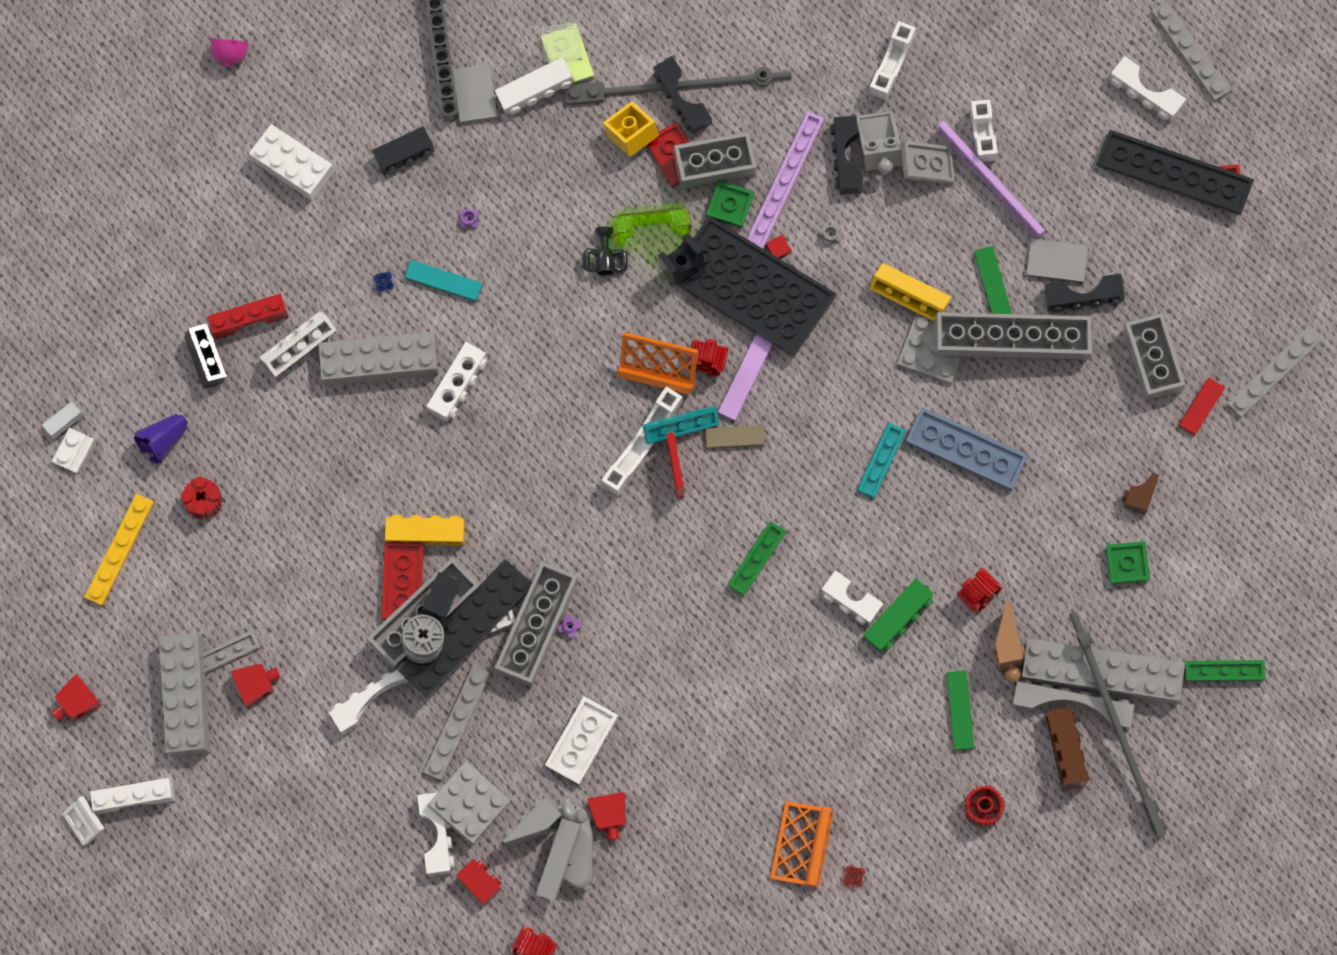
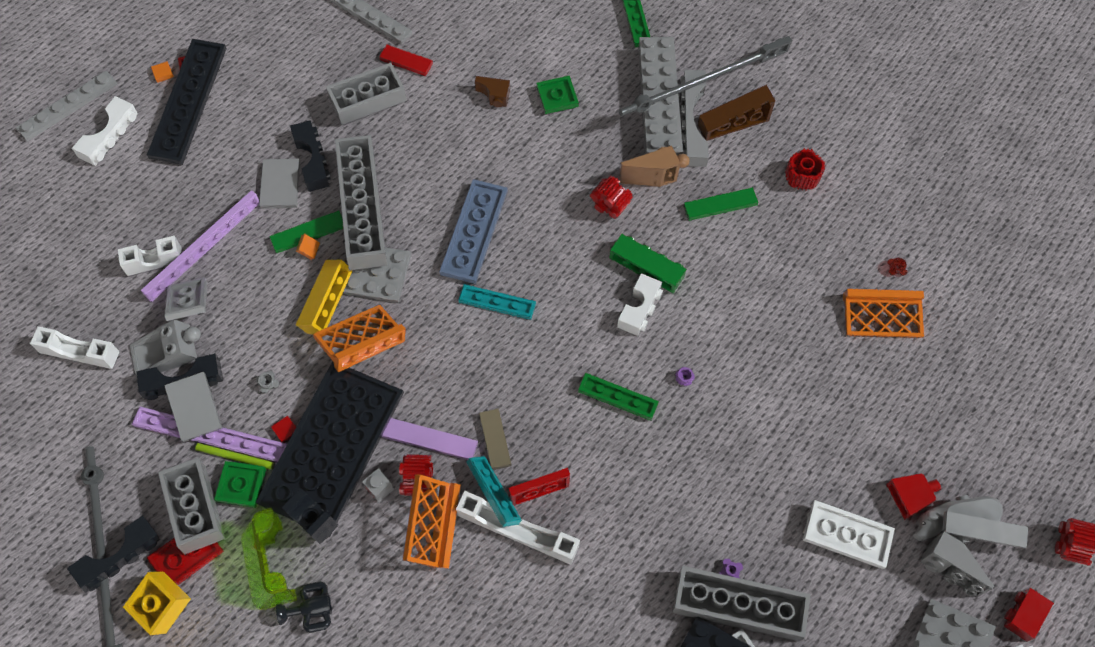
camera: 105 degrees left, 10 degrees down
(705, 324) = (378, 485): none -> light grey brick
(760, 200) = (234, 456): none -> lime bar
(770, 623) = (684, 372): none -> medium lavender plate
(811, 165) = (193, 407): none -> light grey tile
(844, 327) = (368, 346): none -> orange fence
(973, 282) = (307, 246): none -> orange tile
(1222, 148) = (162, 71): none -> orange tile

